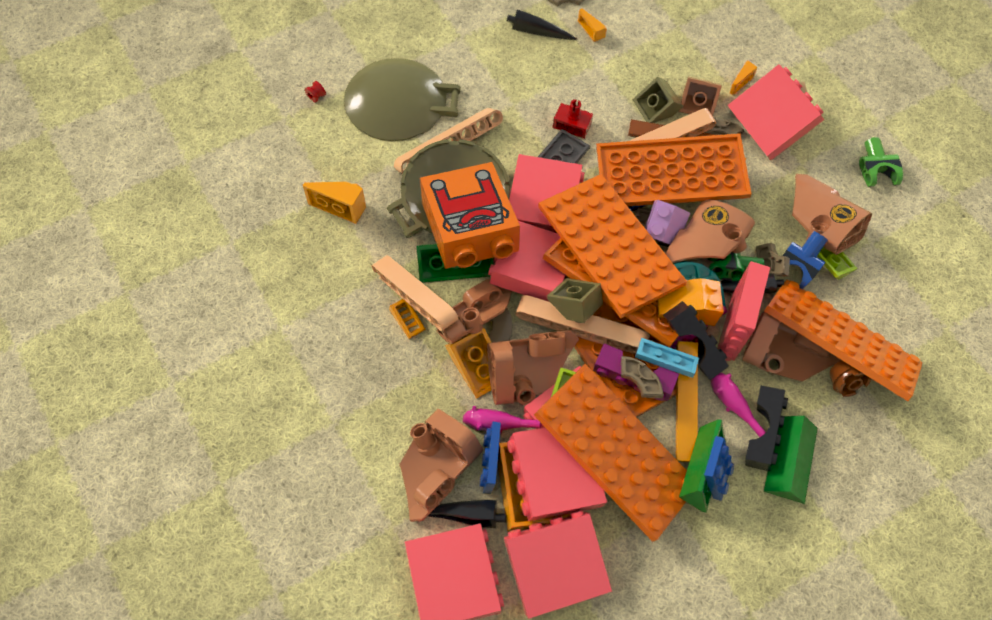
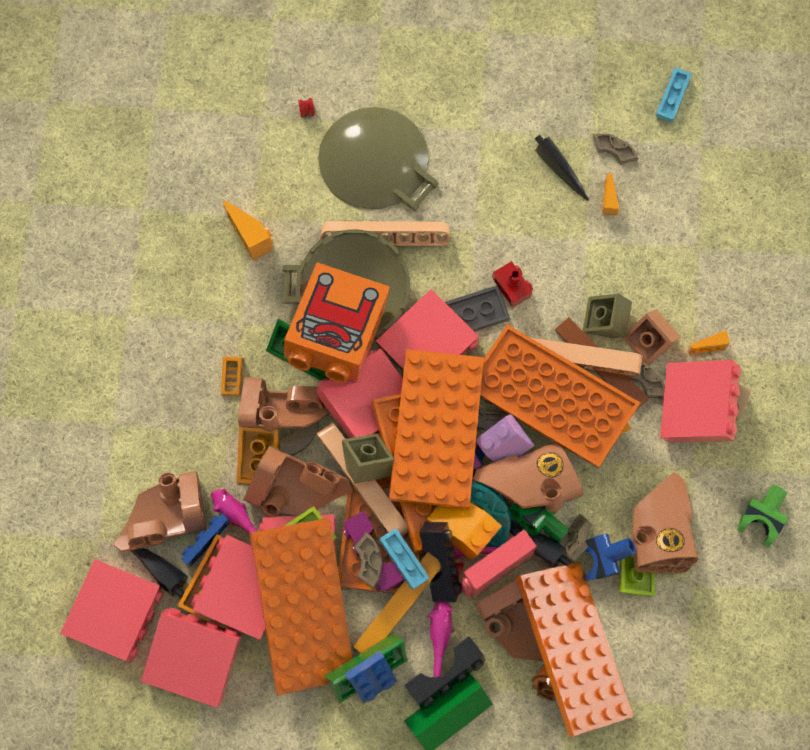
camera: 40 degrees right, 10 degrees up
(415, 293) = (243, 361): light nougat beam -> none

